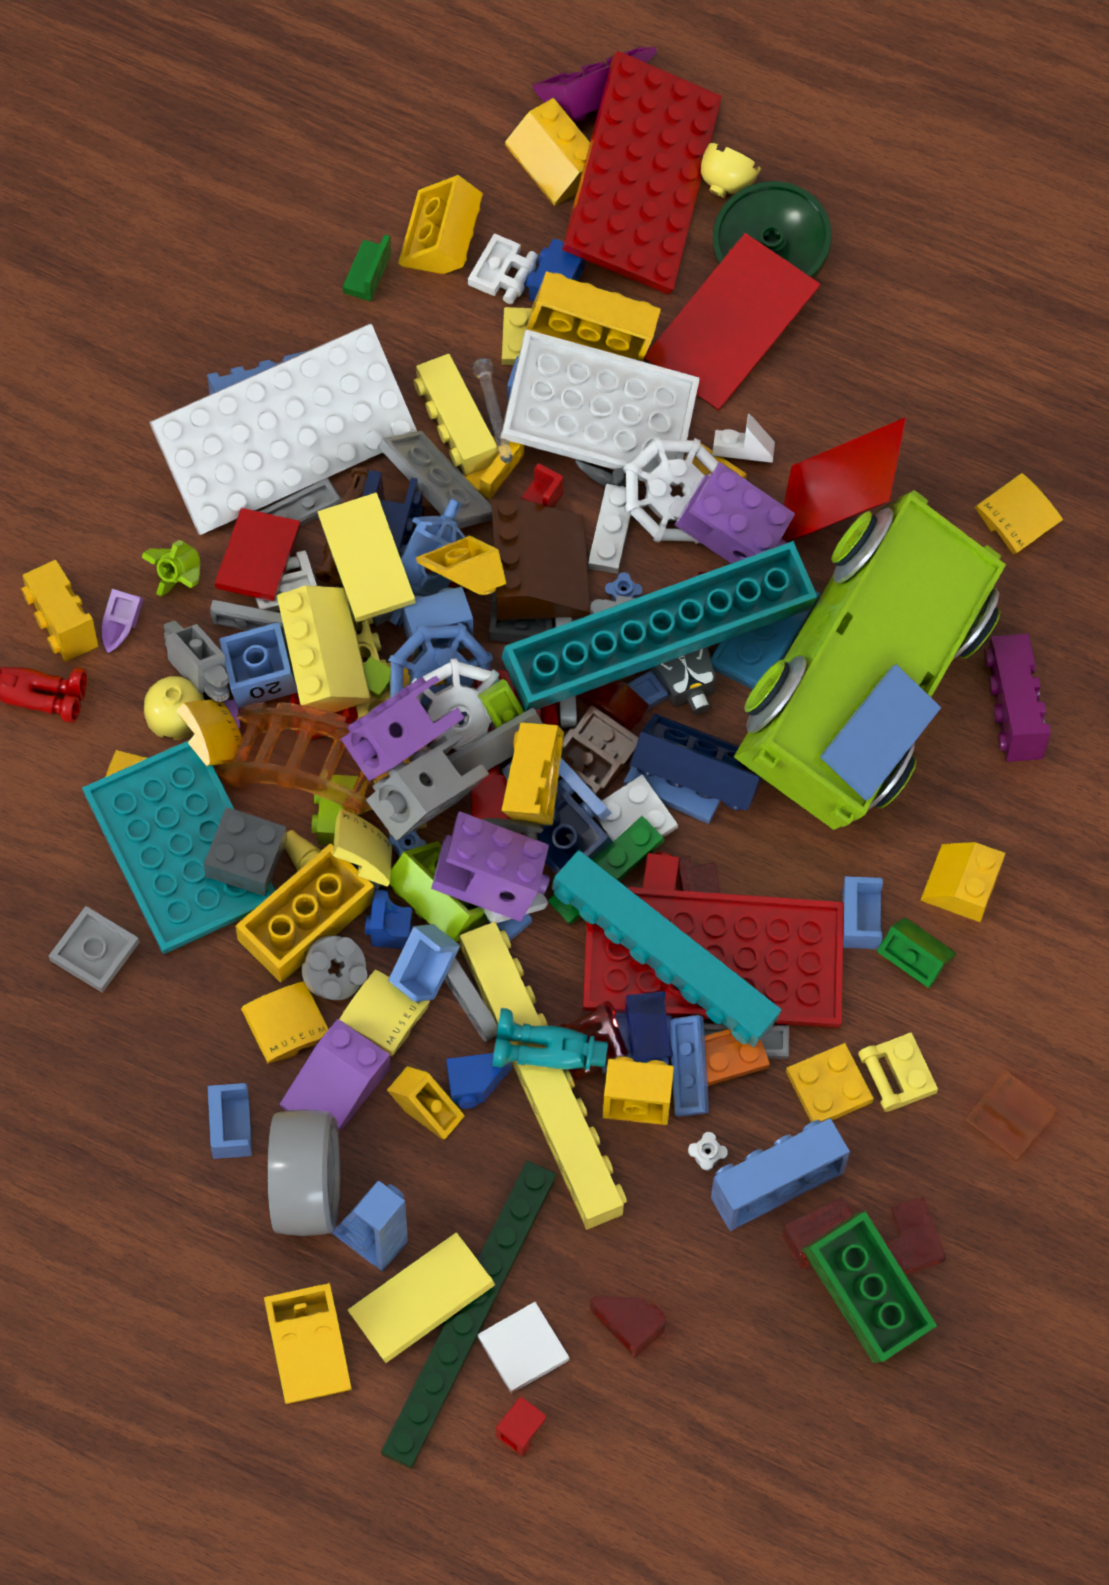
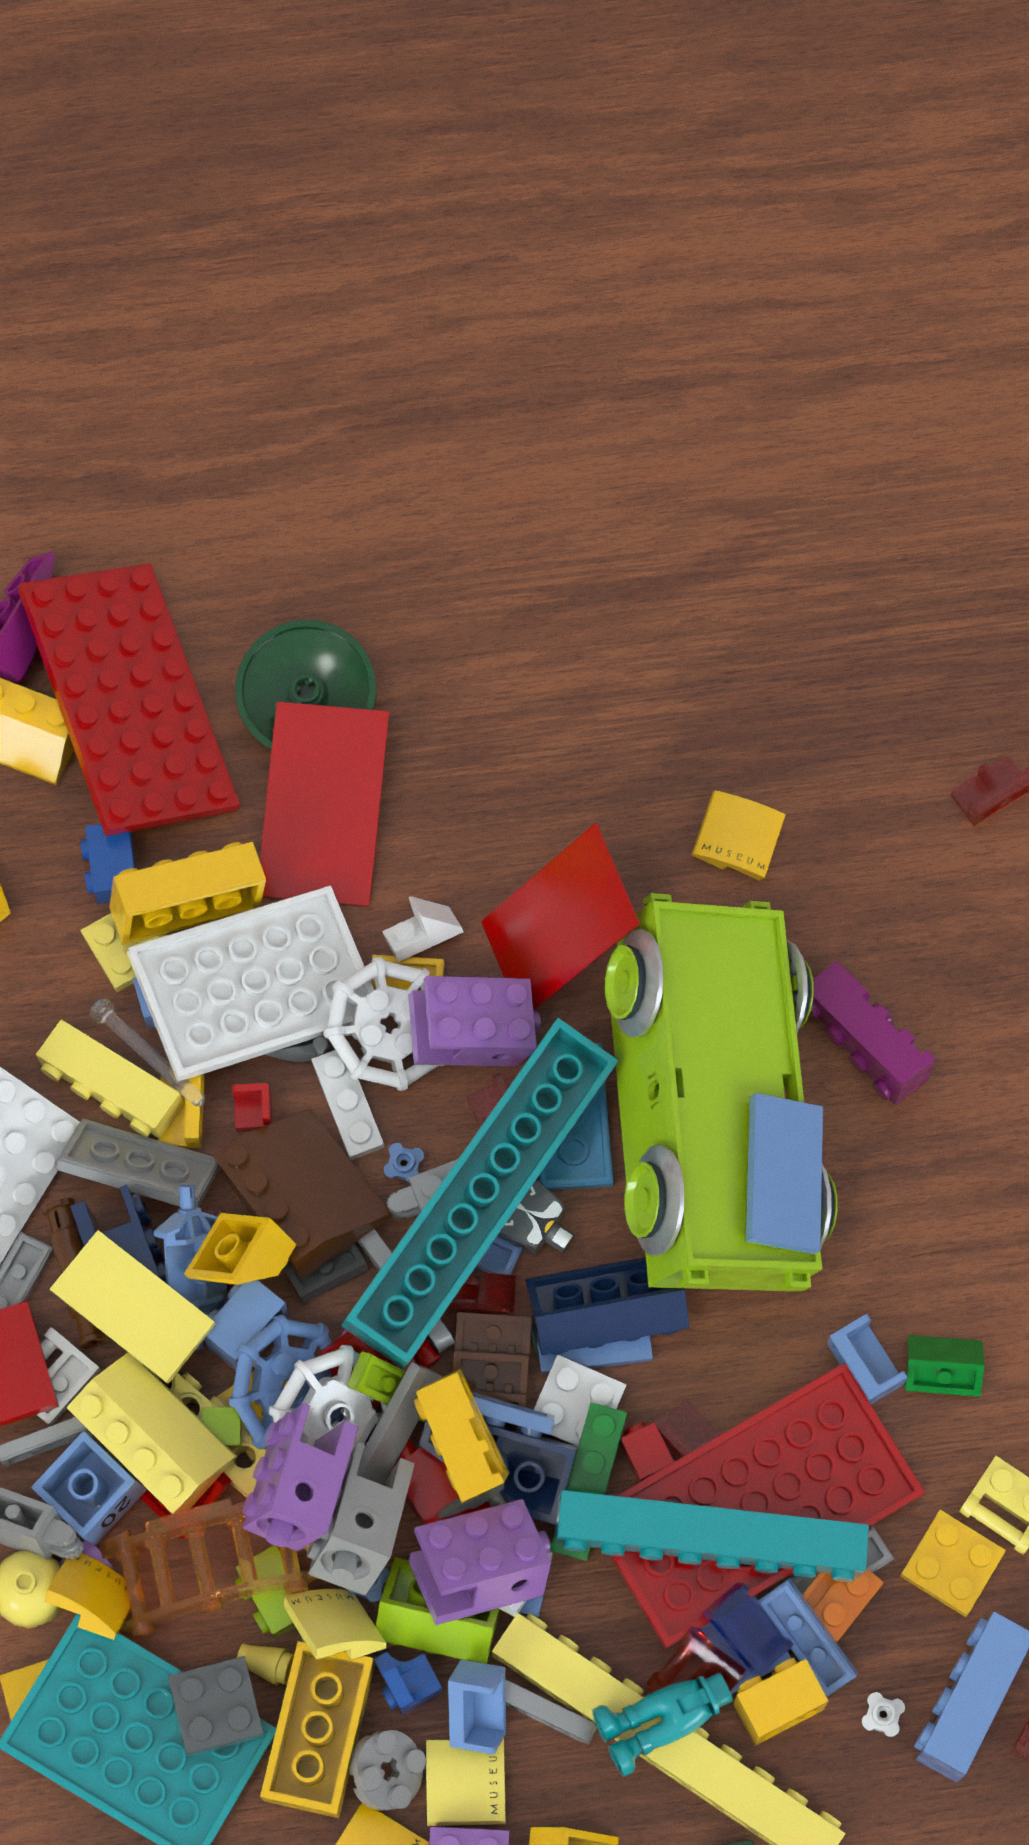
camera: 30 degrees left, 5 degrees up
(473, 1079) = (602, 1798): blue slope -> none
(495, 264) = (40, 888): white plate -> none
(727, 170) = (213, 644): light yellow cylinder -> none
(963, 878) = (940, 1259): yellow slope -> none

